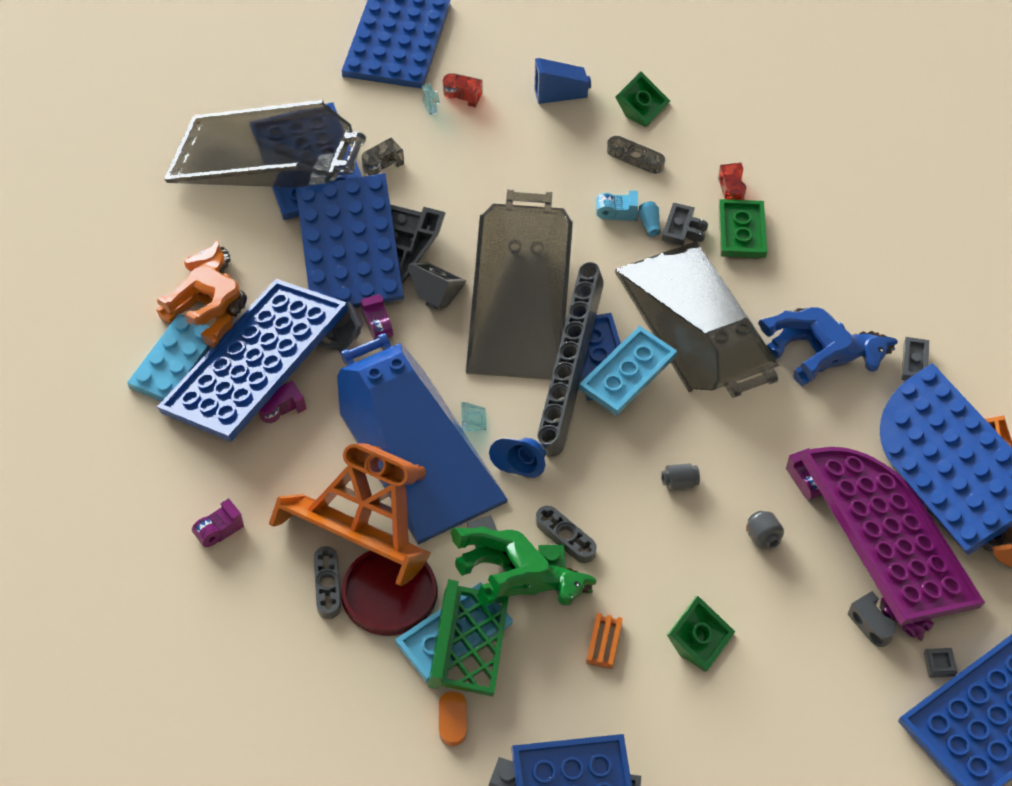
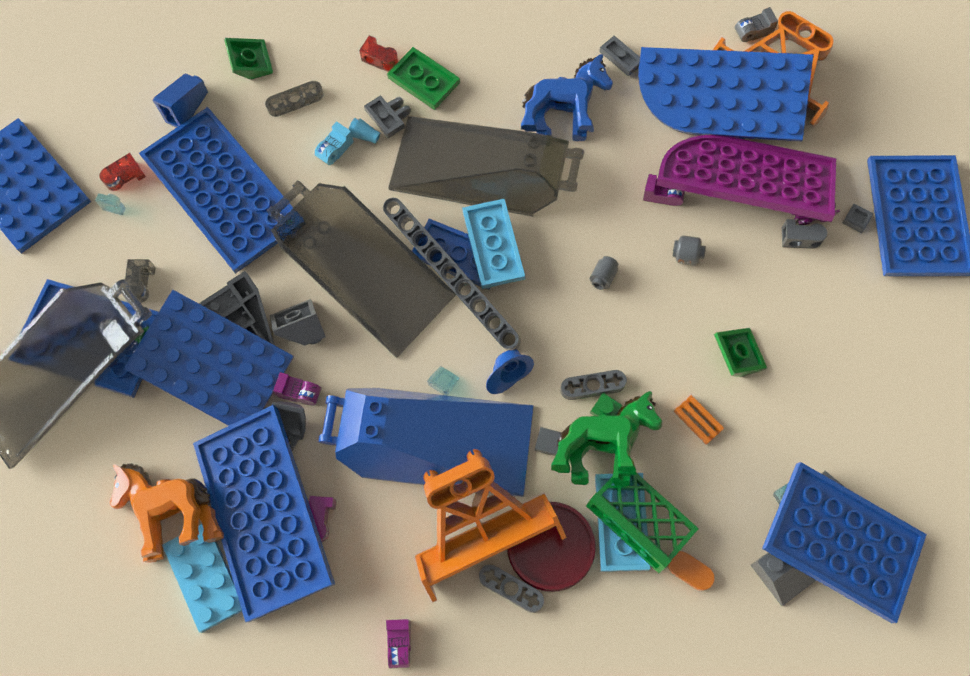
camera: 50 degrees left, 15 degrees up
(507, 150) = (217, 187): none -> blue plate

